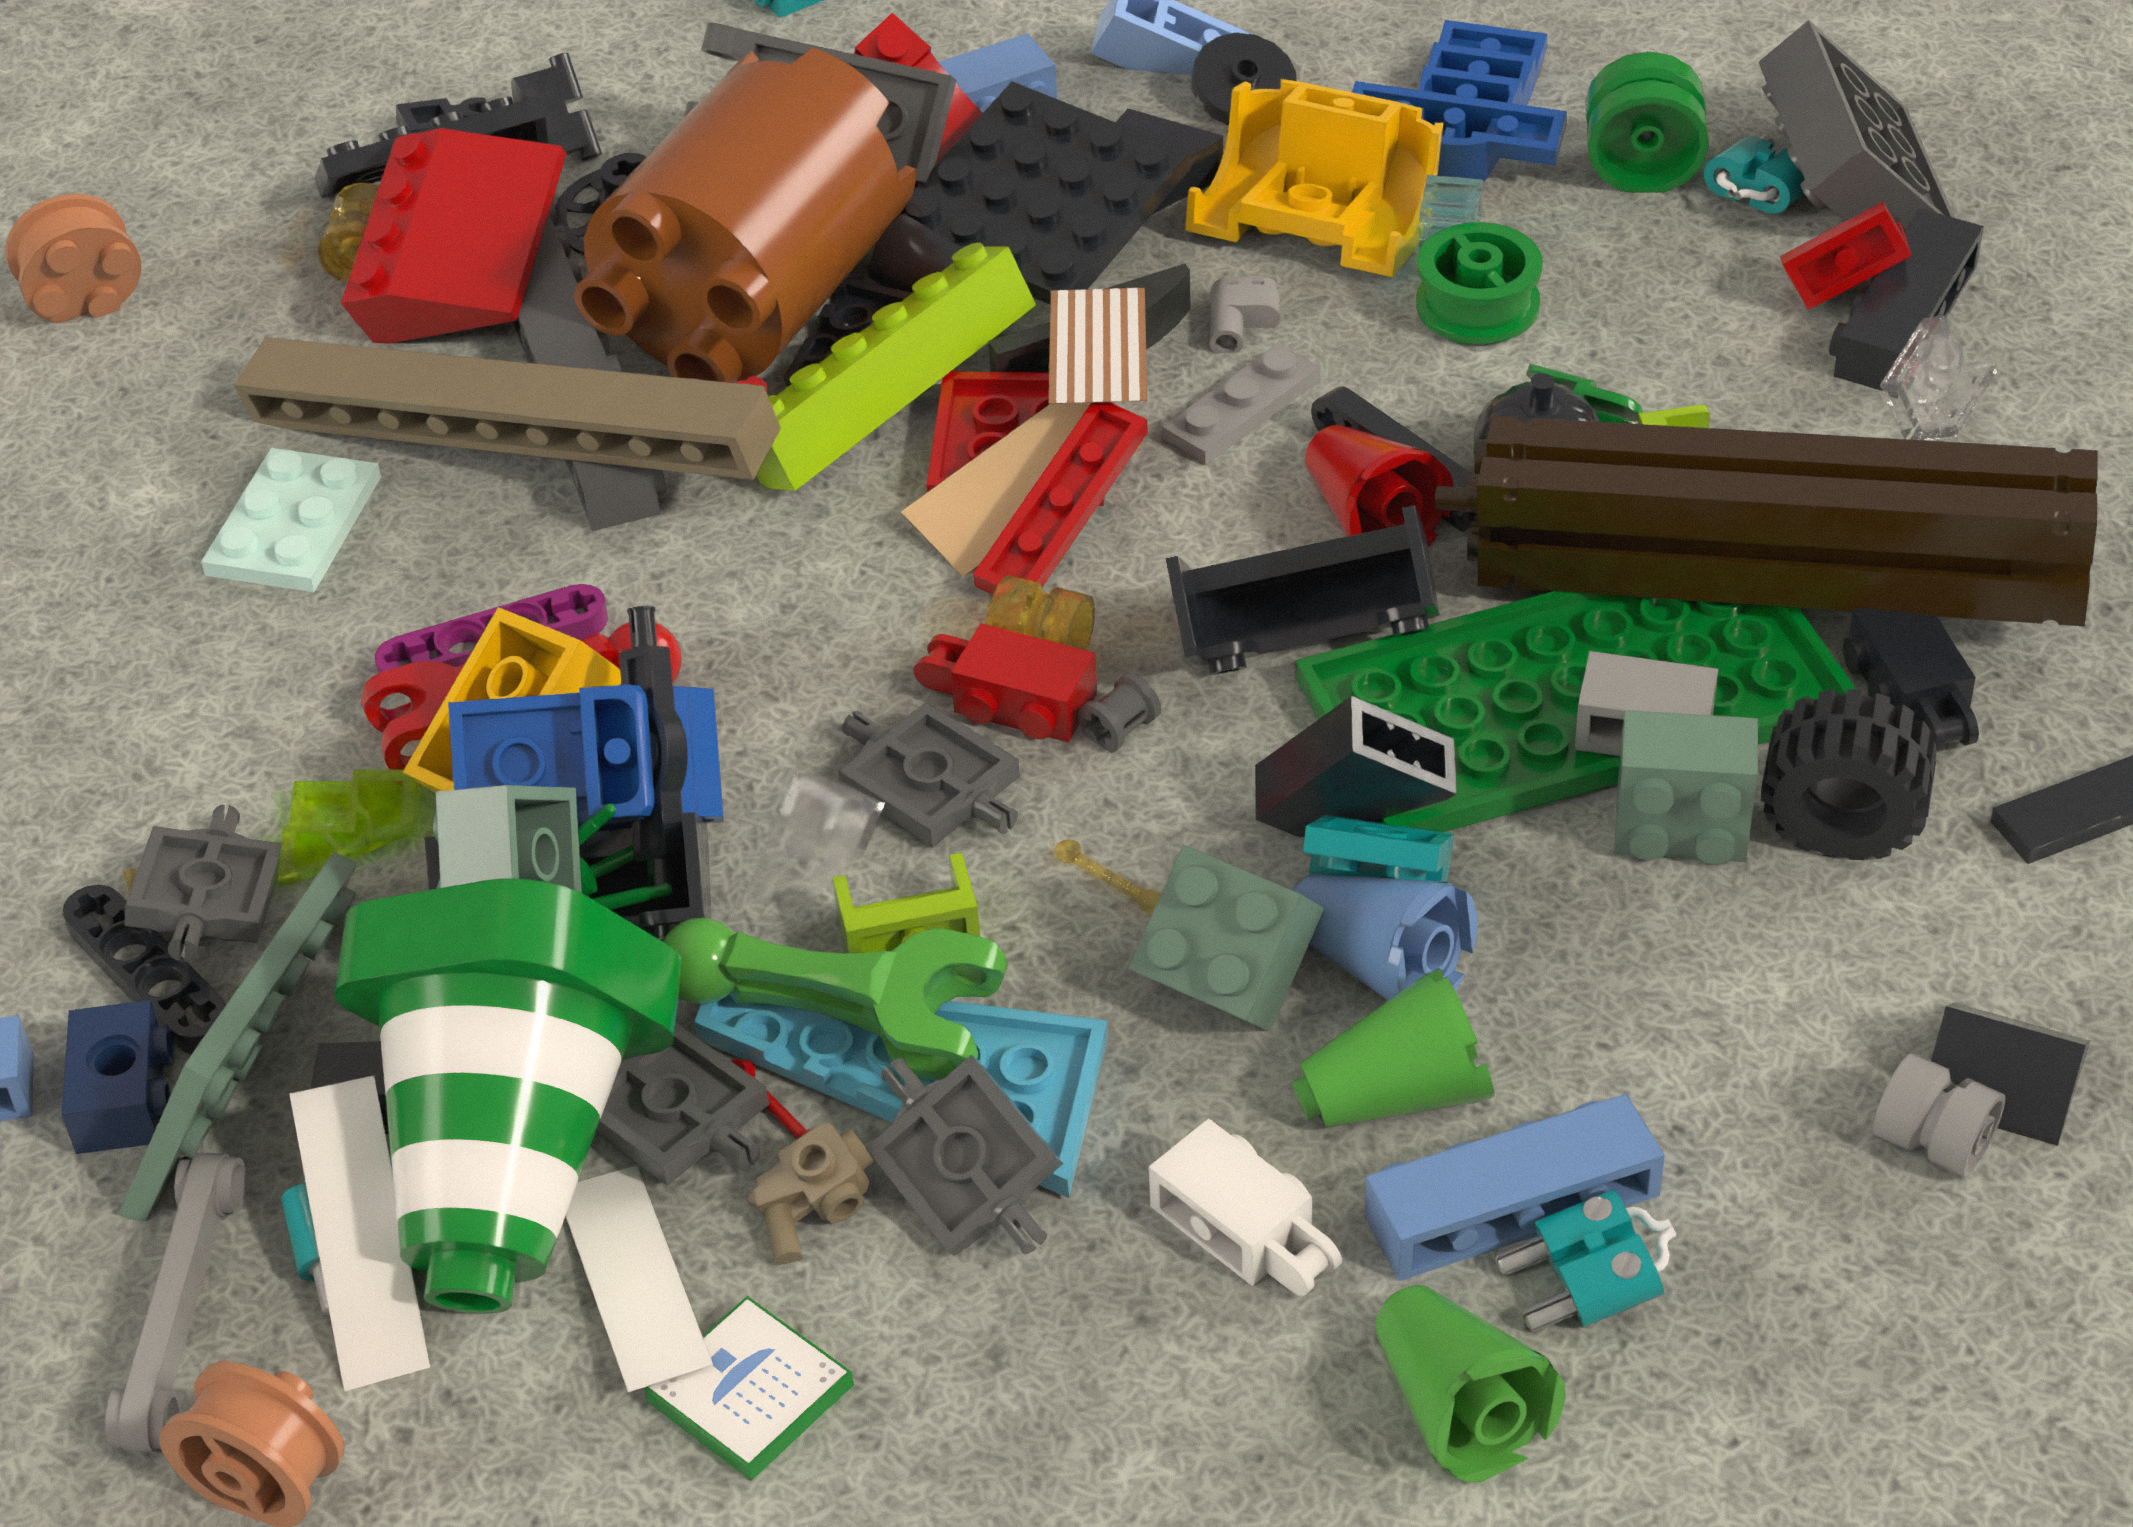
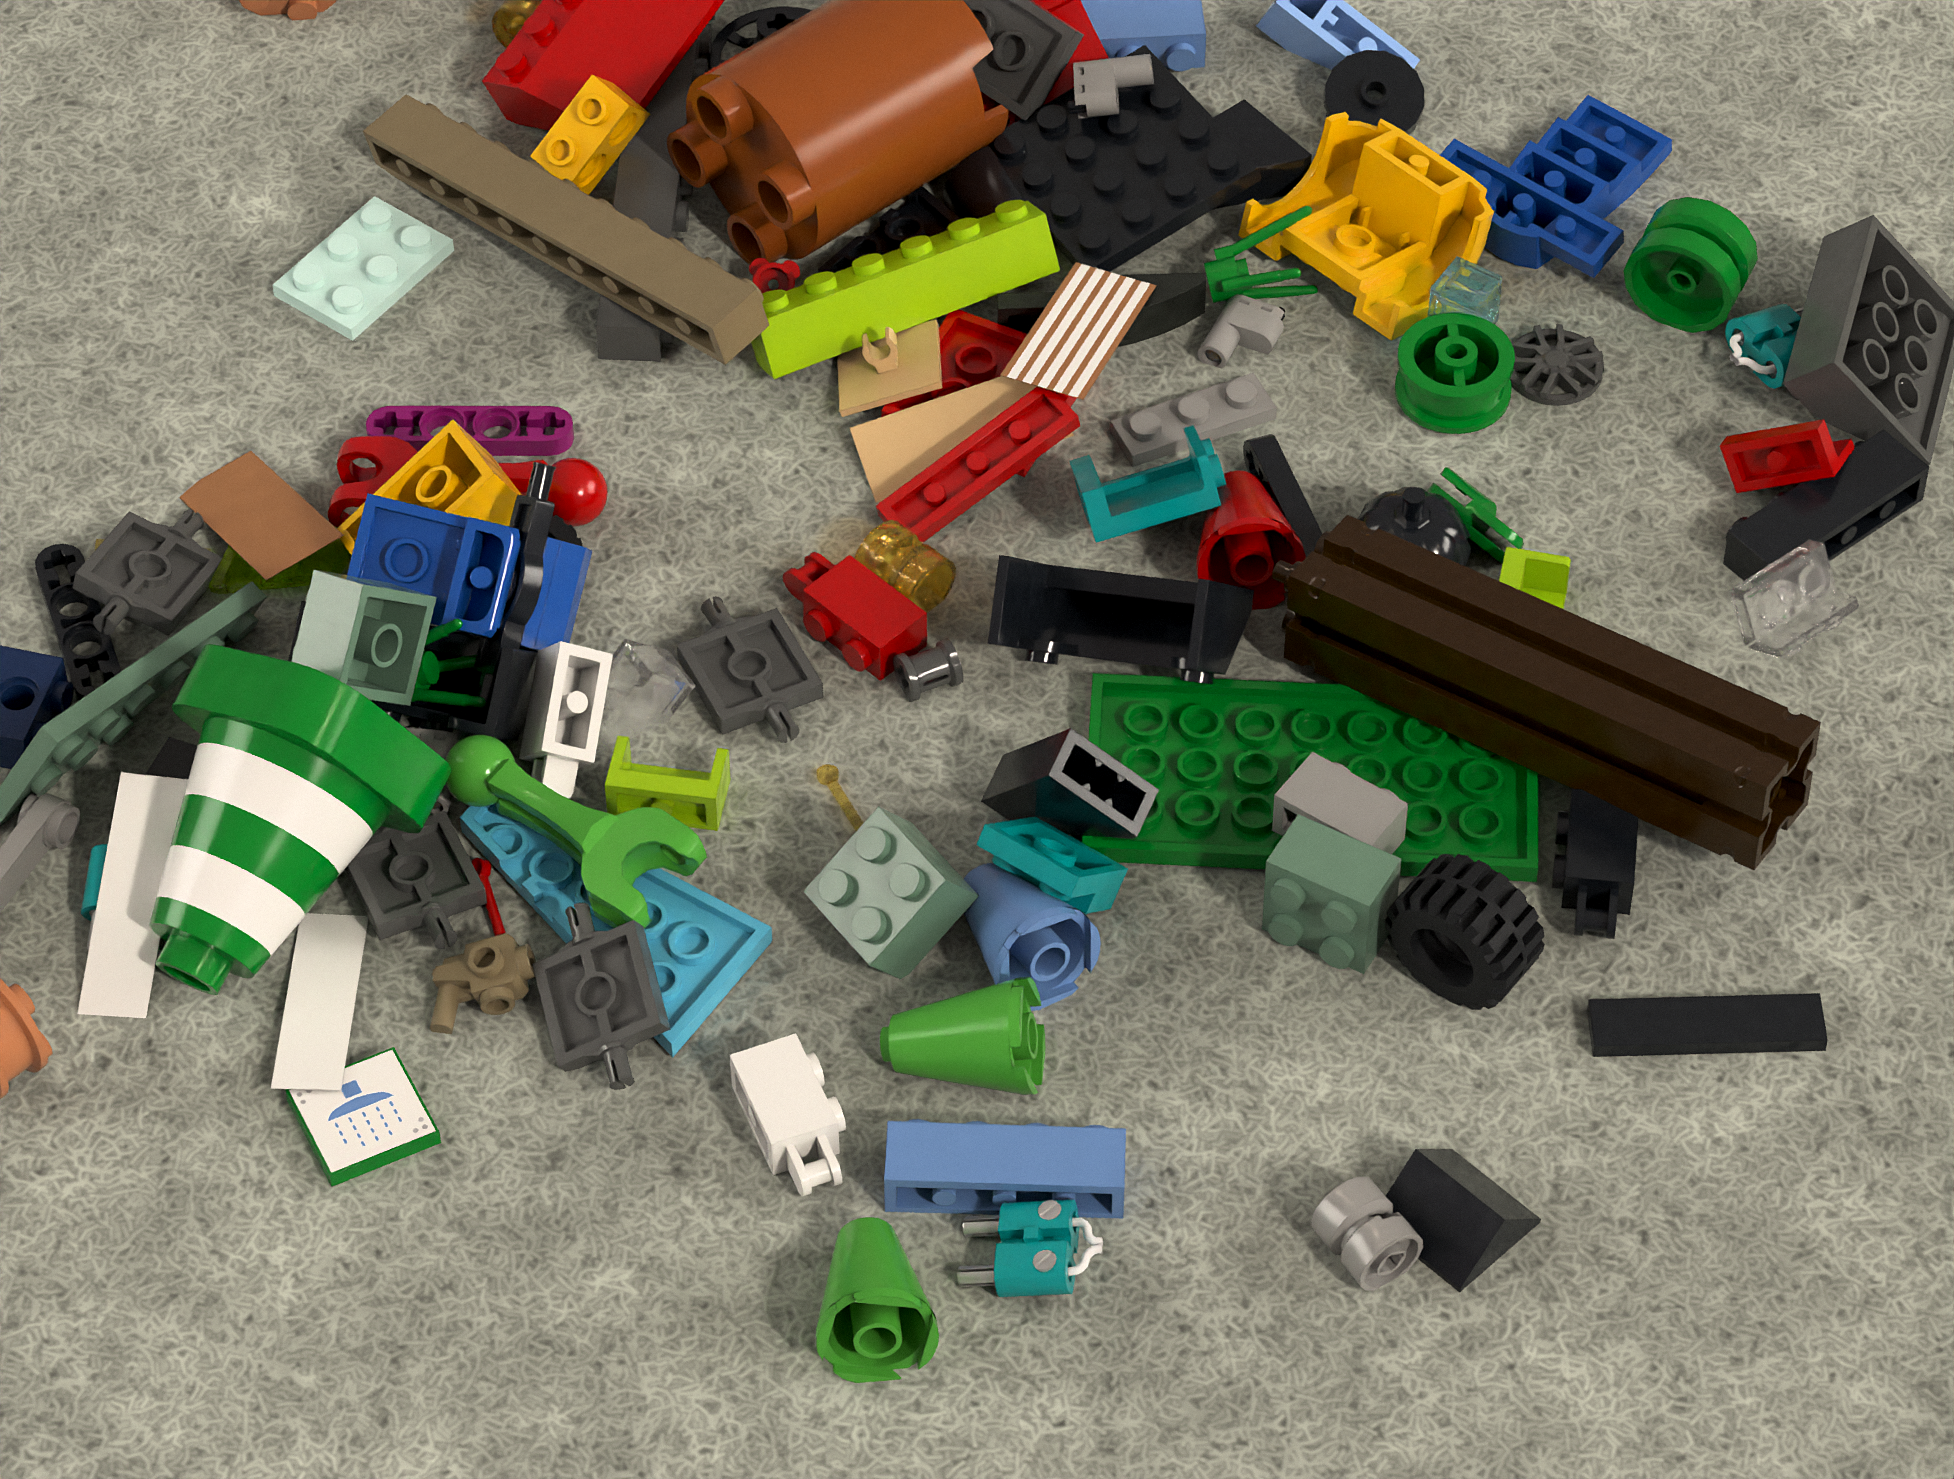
camera: 20 degrees right, 5 degrees up
(305, 786) = (259, 515): none -> medium nougat sticker
(490, 307) = (590, 134): none -> yellow brick
(762, 865) = (565, 713): none -> white brick
(912, 444) = (890, 368): none -> tan piece
(993, 122) = (1098, 83): none -> light grey piece
(1211, 261) = (1232, 277): none -> green plant
(1249, 482) = (1151, 494): none -> teal panel
(1567, 253) = (1556, 365): none -> dark grey wheel

